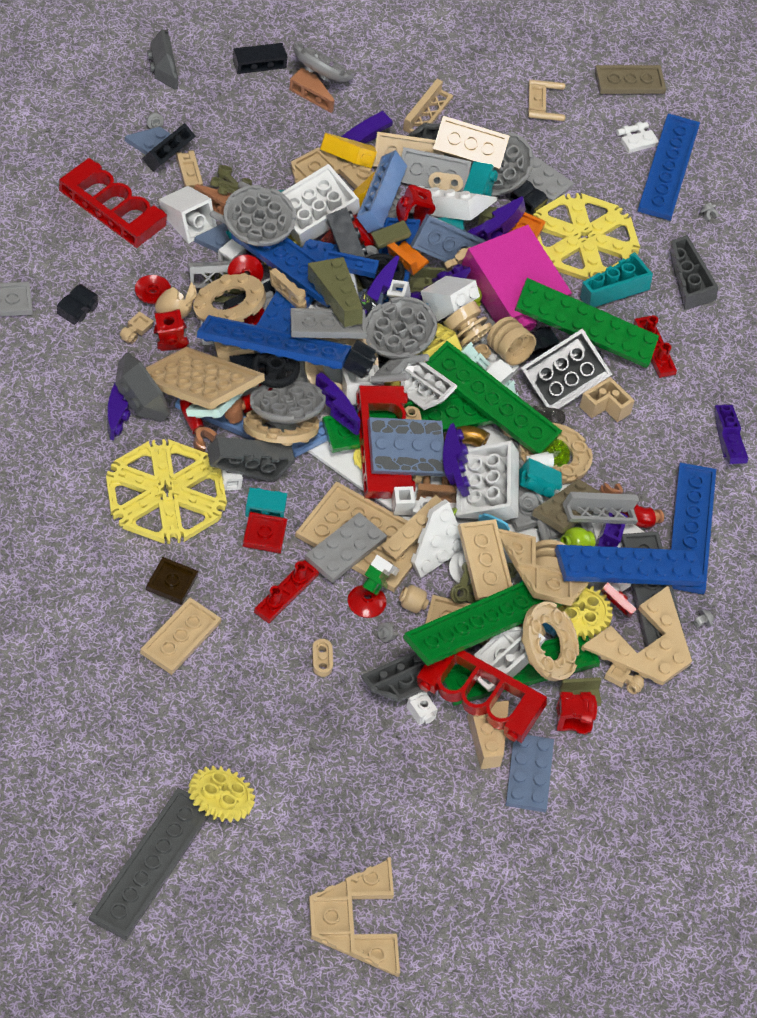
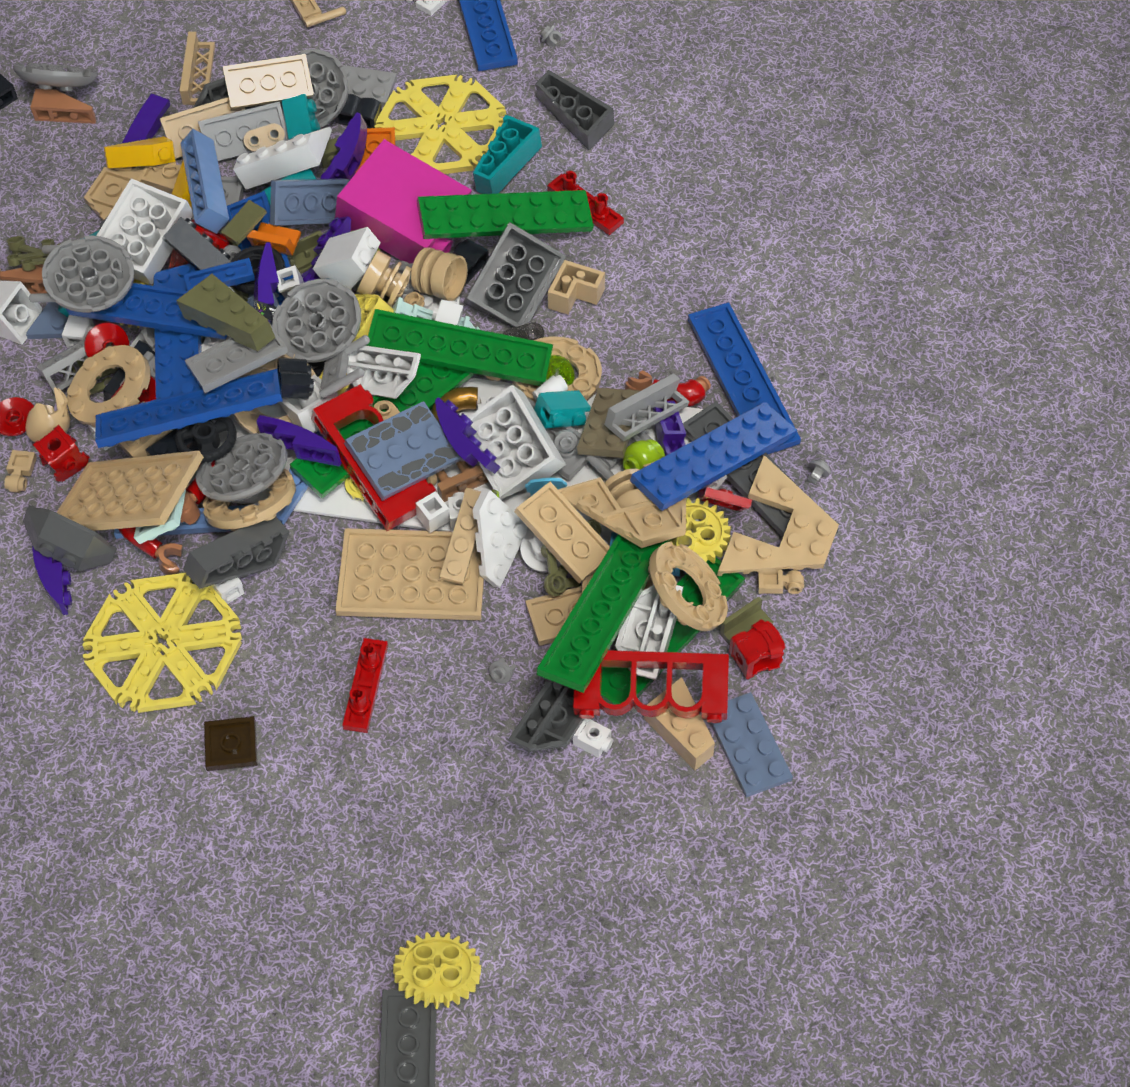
camera: 20 degrees left, 5 degrees up
(180, 636) = (278, 804): tan plate -> none
(265, 532) = (301, 629): red plate -> none
(266, 502) = (284, 596): teal brick -> none
(288, 289) = (168, 340): tan plate -> none
(322, 659) = (450, 741): tan plate -> none
(333, 918) = (648, 1045): tan wing -> none
(345, 547) = (400, 599): light grey plate -> none
(366, 607) = (457, 655): red dish -> none
(378, 574) = (456, 611): green hips -> none
(411, 197) = (245, 174): red piece -> none
(413, 599) = (508, 616): tan head -> none
(457, 260) = (330, 209): tan plate -> none
(729, 434) = (717, 258): dark purple slope -> none

